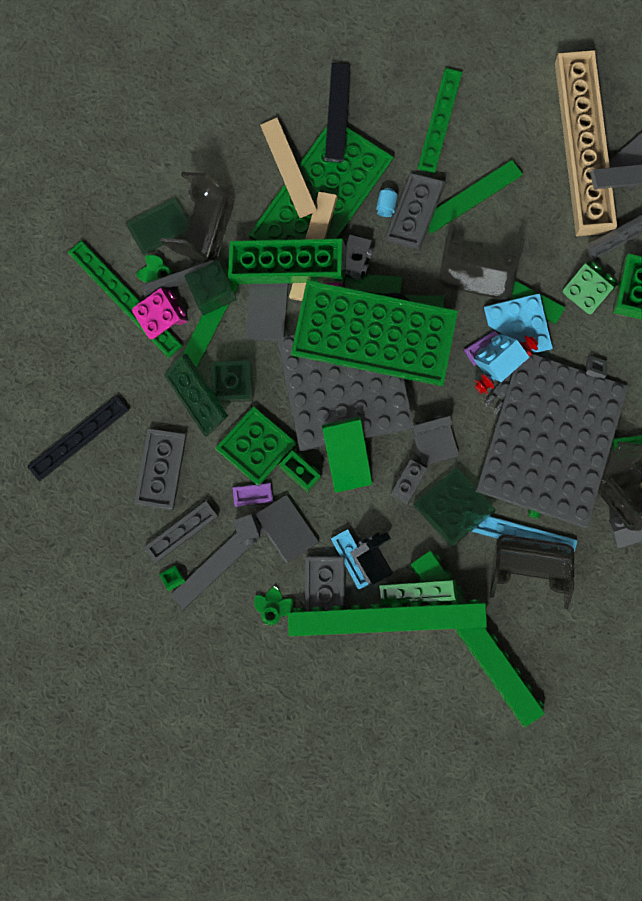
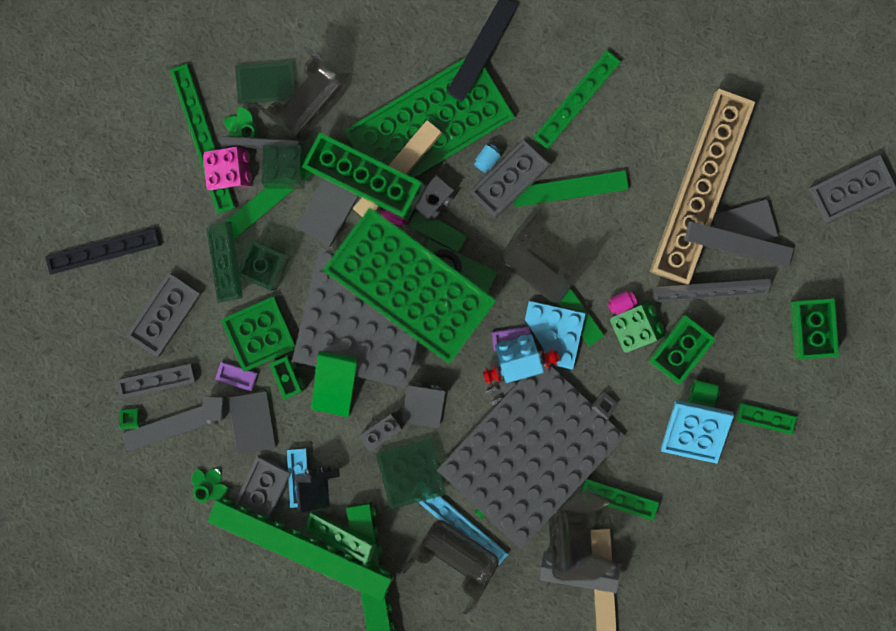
camera: 35 degrees right, 10 degrees up
(288, 168) = (410, 82): tan tile -> none
(566, 271) = (622, 302): none -> dark pink brick

